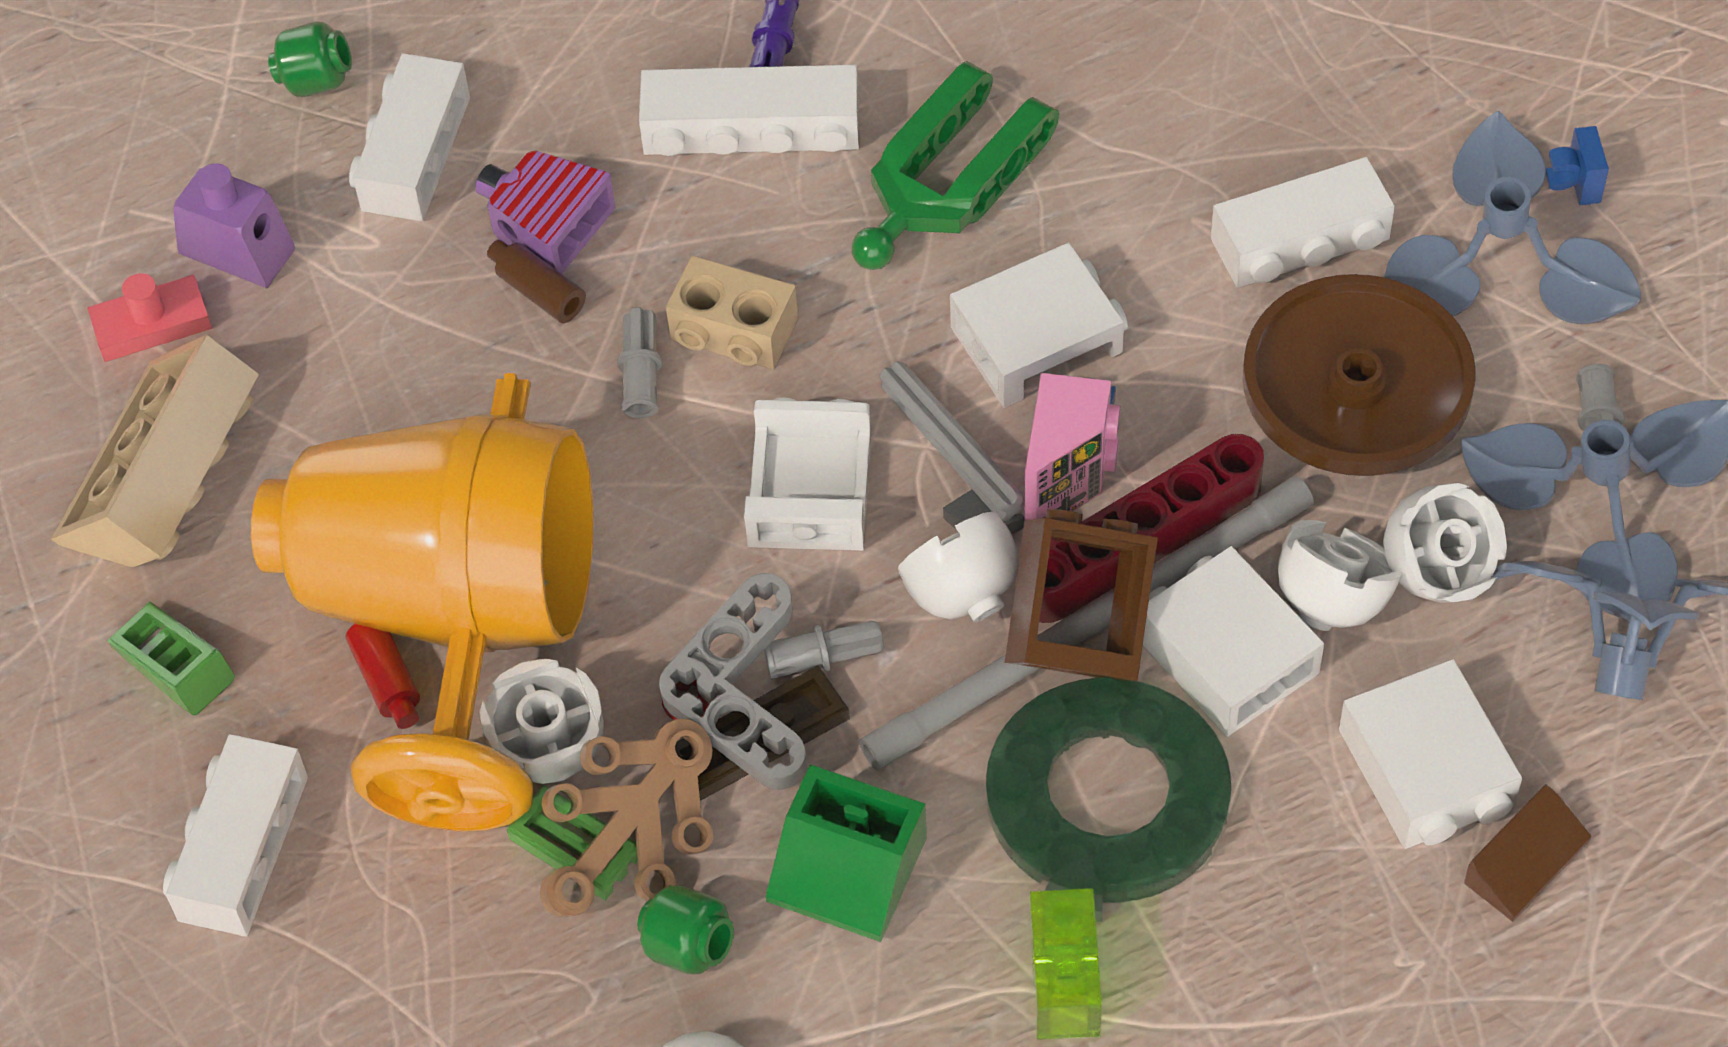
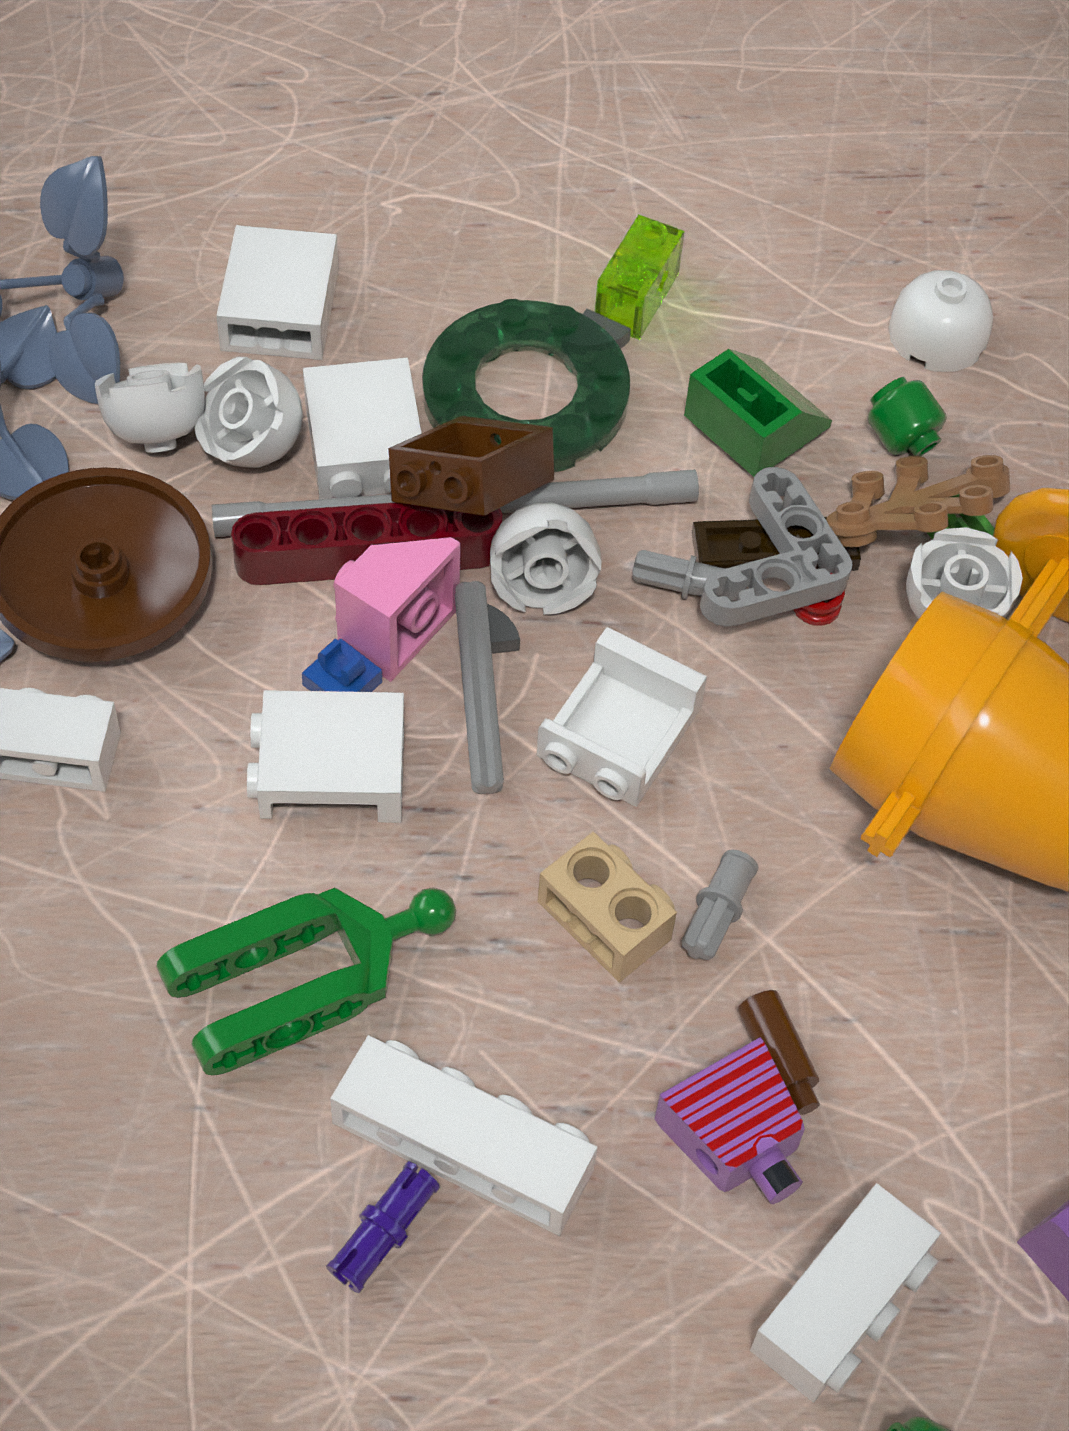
camera: 160 degrees left, 0 degrees up
(1527, 854) = (282, 212): reddish brown slope -> none

